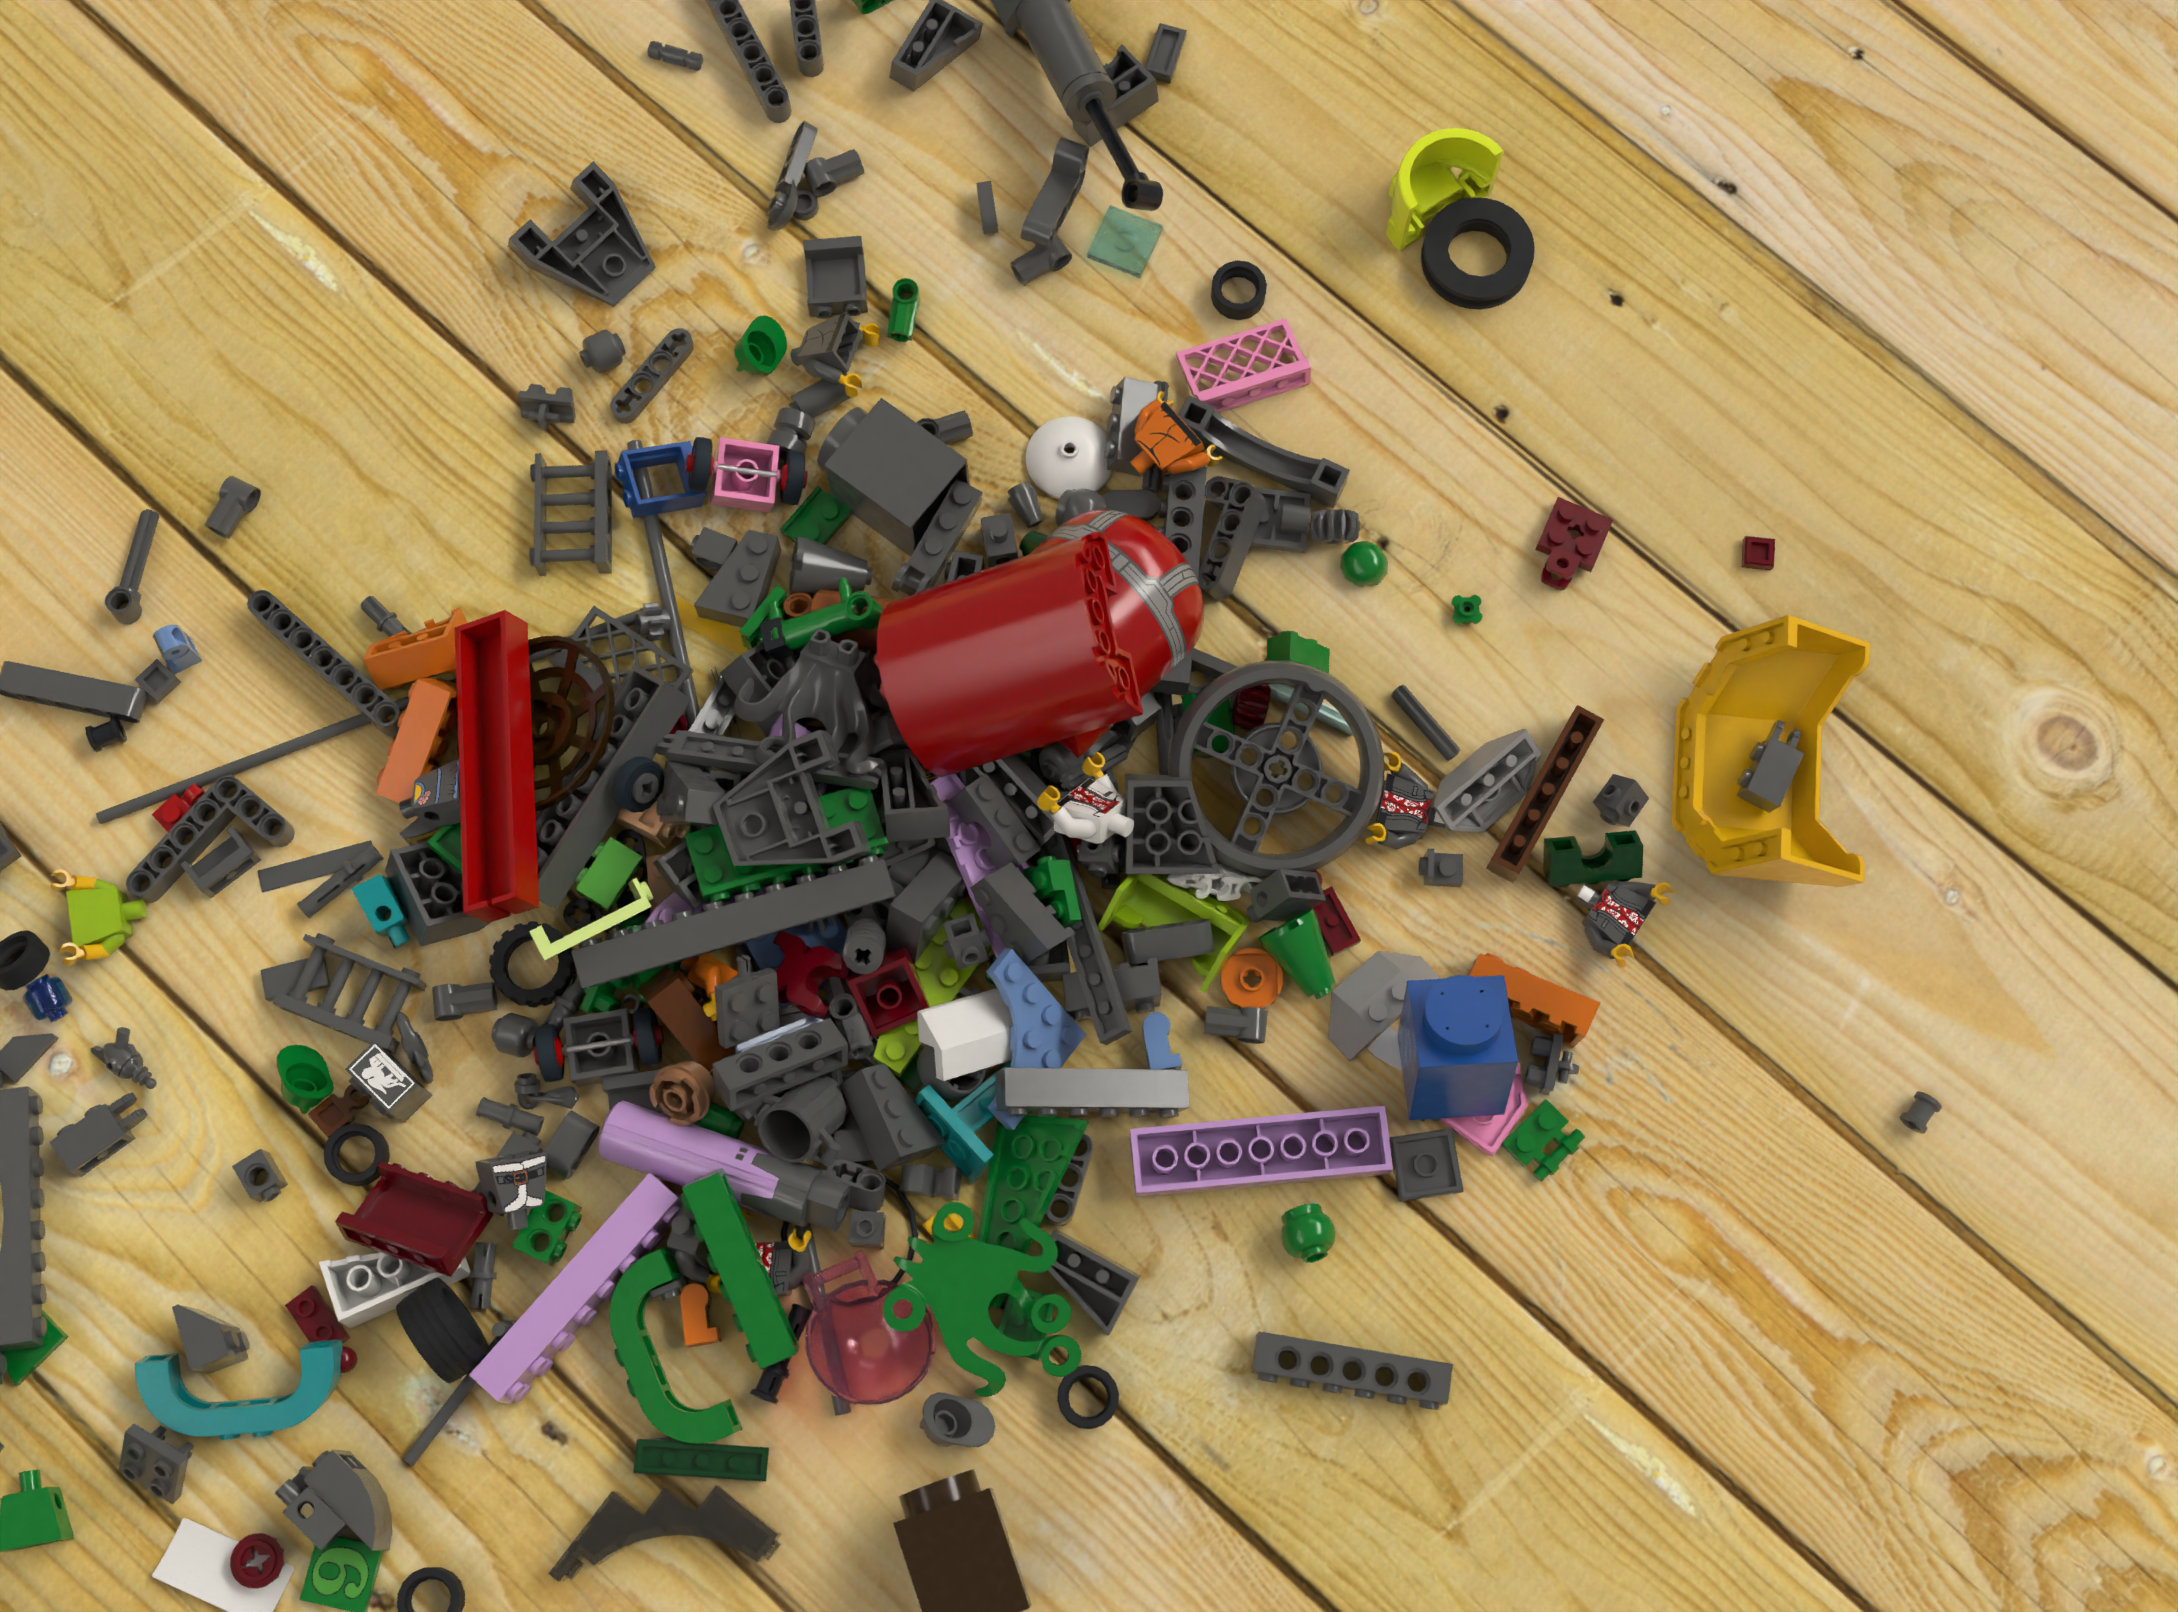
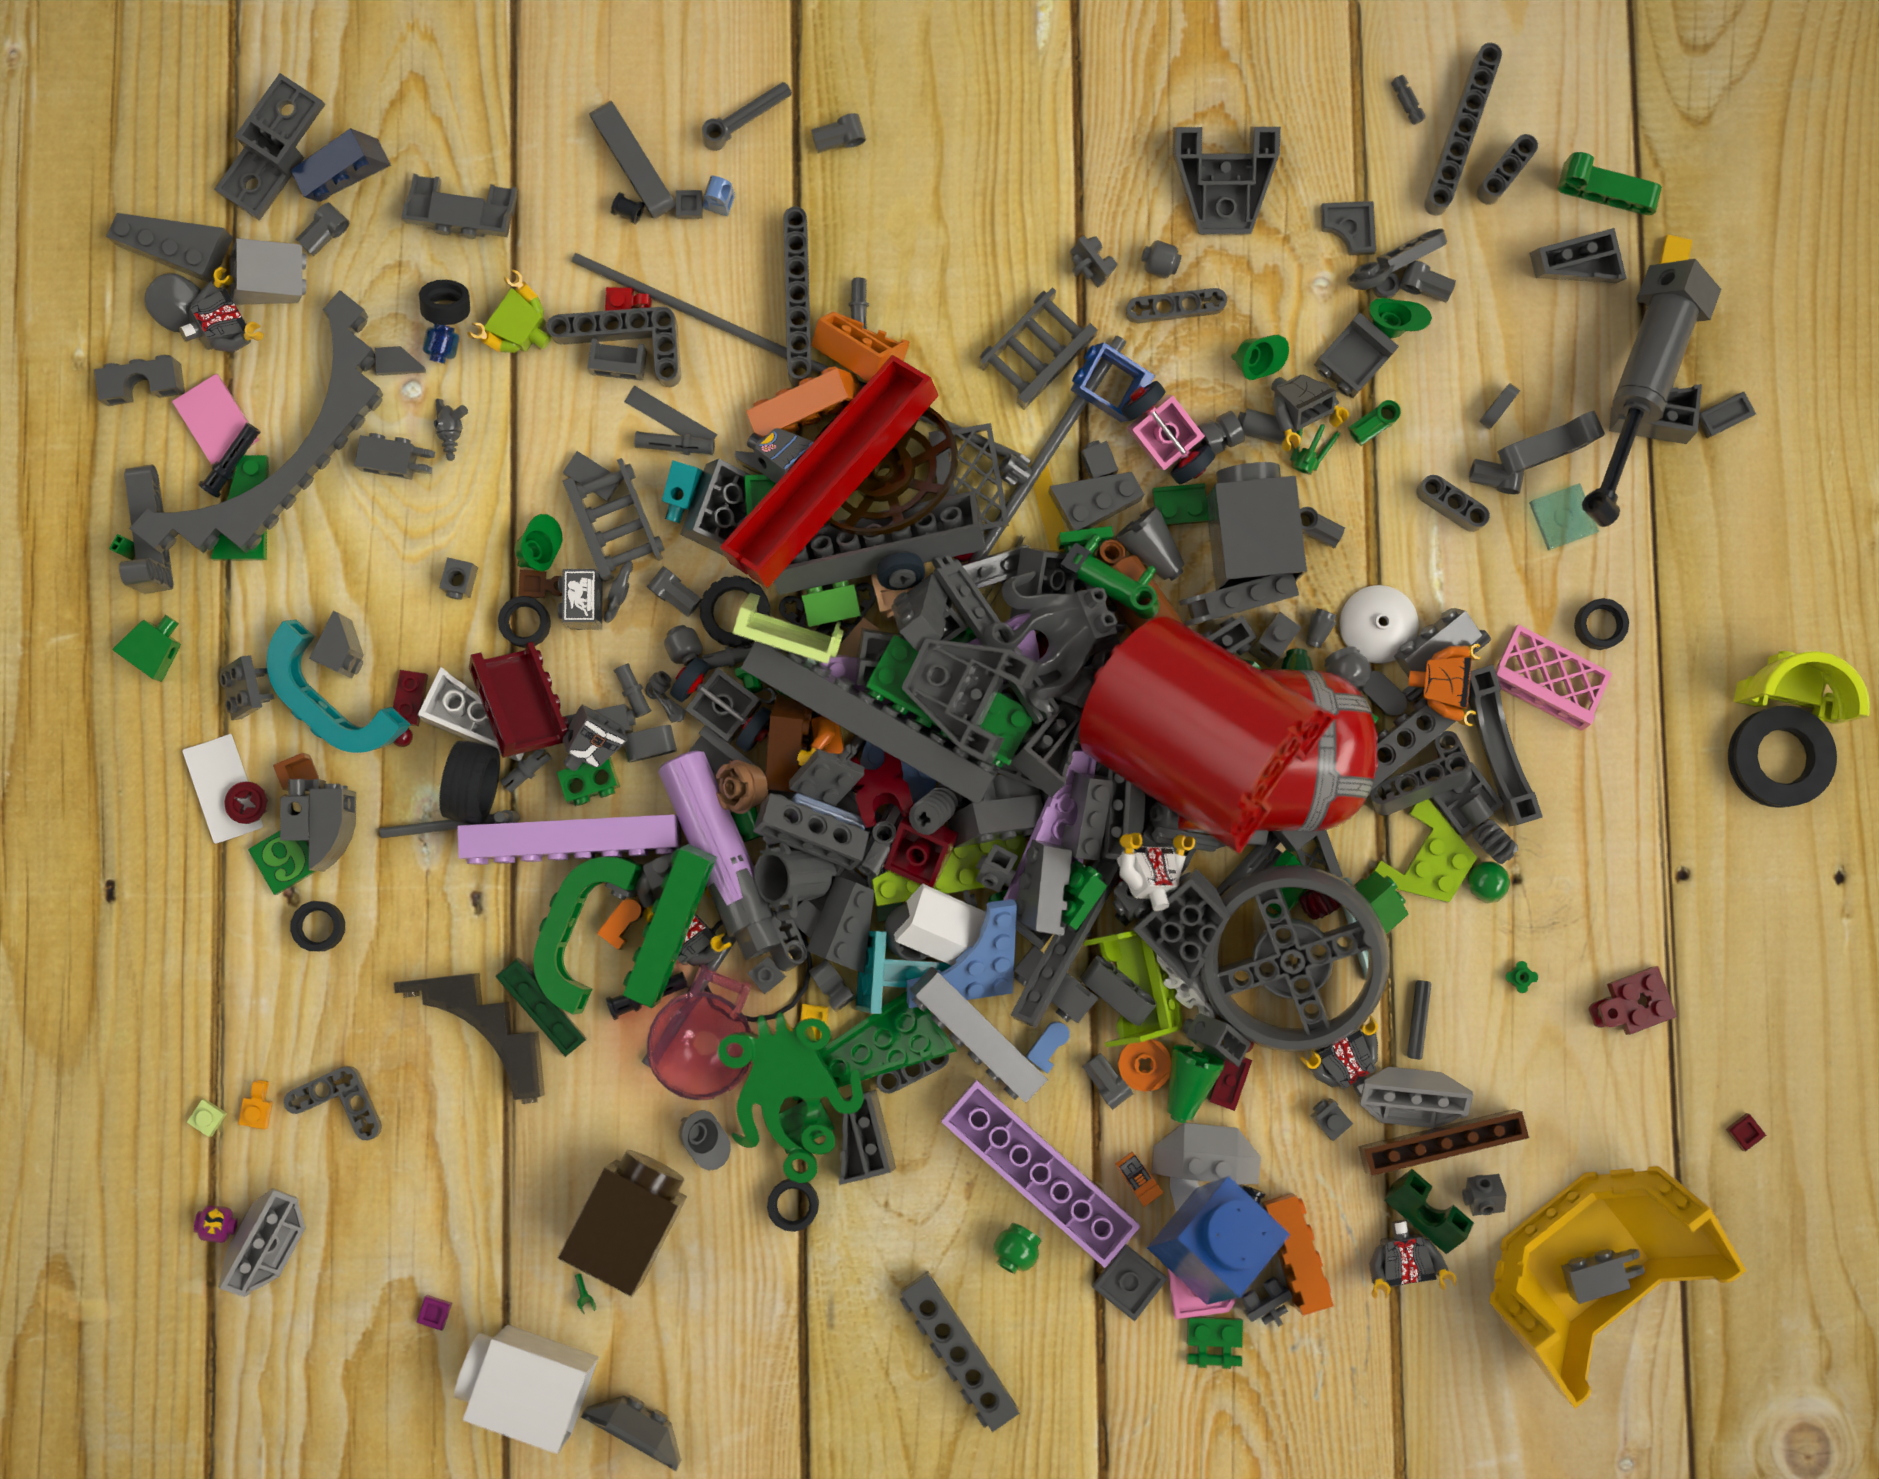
camera: 45 degrees right, 10 degrees up
(270, 1480) = (296, 767): none -> dark orange panel
(728, 185) = (1352, 223): none -> dark grey tile
(838, 215) = (1398, 316): none -> green piece
(878, 386) = (1306, 459): none -> green plant
(1019, 322) = (1466, 503): none -> dark grey beam
(1309, 585) = (1440, 861): none -> lime wing
(1344, 1074) = (1139, 1179): none -> leg

